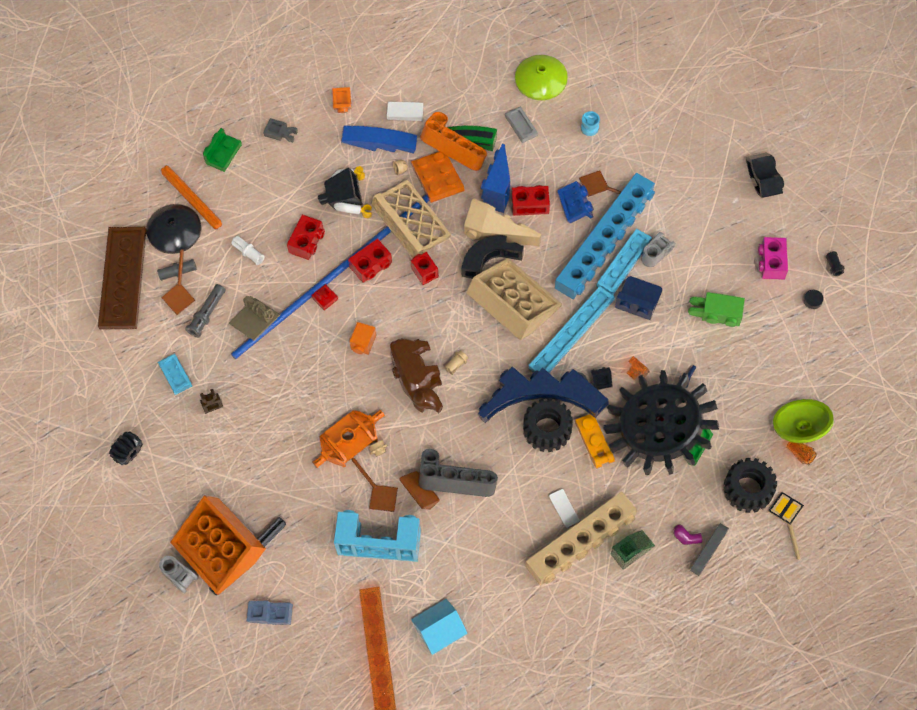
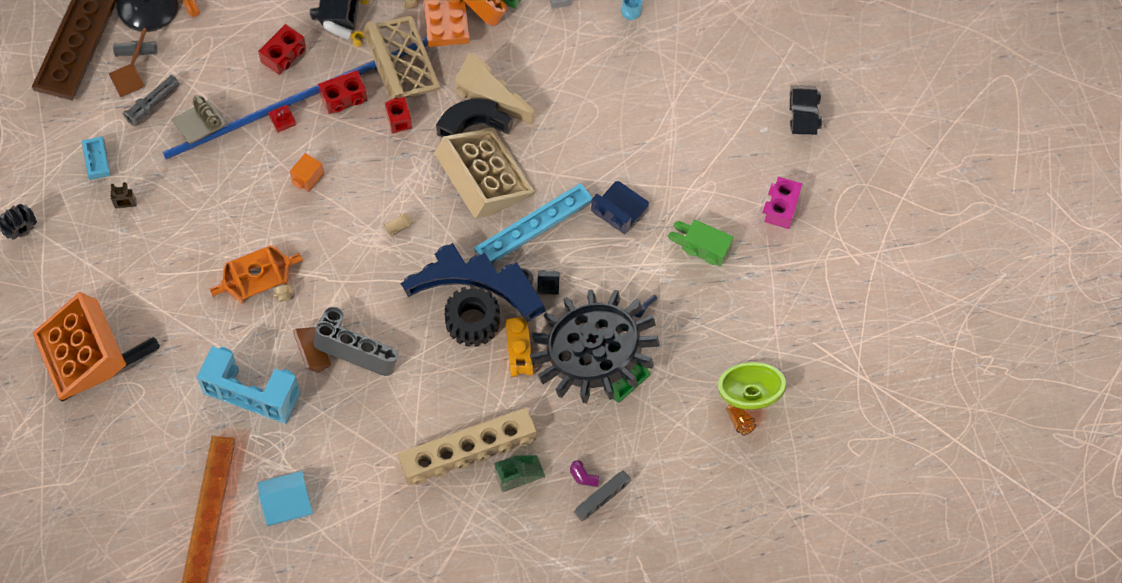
camera: 10 degrees right, 0 degrees up
(179, 576) = (28, 369): light grey piece -> none
(247, 250) = (217, 47): white axle -> none
(269, 613) = (110, 435): sand blue slope -> none
(382, 497) = (272, 346): dark orange piece -> none
(414, 376) = (347, 226): reddish brown animal -> none
(497, 185) = (505, 44): blue slope -> none
(530, 204) = (536, 75): red brick -> none
(564, 508) = (461, 409): white sticker -> none
(575, 202) = (586, 86): blue bracket -> none
(596, 183) = (617, 72): dark orange piece -> none
(624, 261) = (617, 164): medium azure plate -> none
(637, 186) = (594, 132): dark azure brick -> none
(637, 368) = (590, 282): clear orange tile -> none
(659, 248) = (660, 158): light grey piece -> none
(756, 471) = (674, 422): black tyre -> none
(787, 510) = (702, 477): piece -> none
(813, 299) = (812, 258): black tile -> none
(836, 267) = (849, 229): black pin -> none

